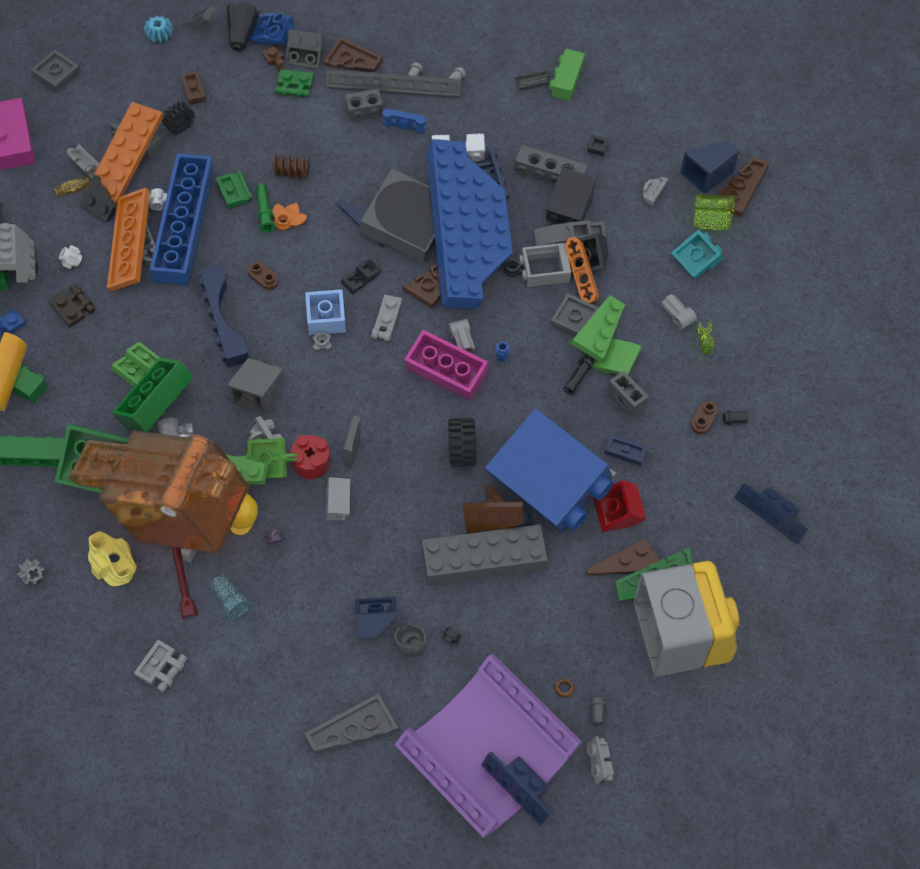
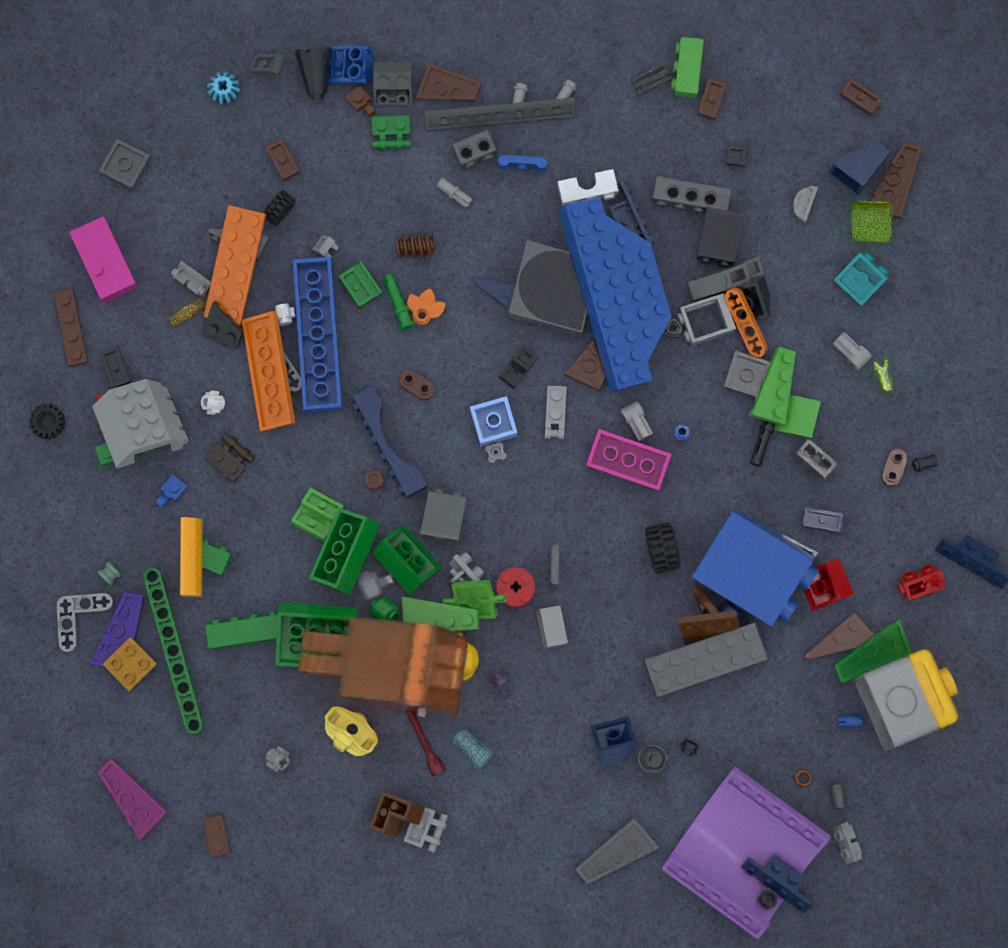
camera: 10 degrees left, 20 degrees up
(130, 640) = (392, 812): none -> reddish brown brick
(200, 346) = (373, 479): none -> reddish brown tile
(211, 414) = (406, 559): none -> green slope
(214, 152) = (323, 245): none -> light grey tile
(337, 134) = (454, 192): none -> light grey axle
(507, 798) = (772, 899): none -> black plate
(584, 100) = (711, 98): none -> reddish brown plate
(622, 639) = (850, 721): none -> blue pin
(718, 119) = (860, 96): none -> reddish brown plate
(721, 520) = (924, 582): none -> red brick

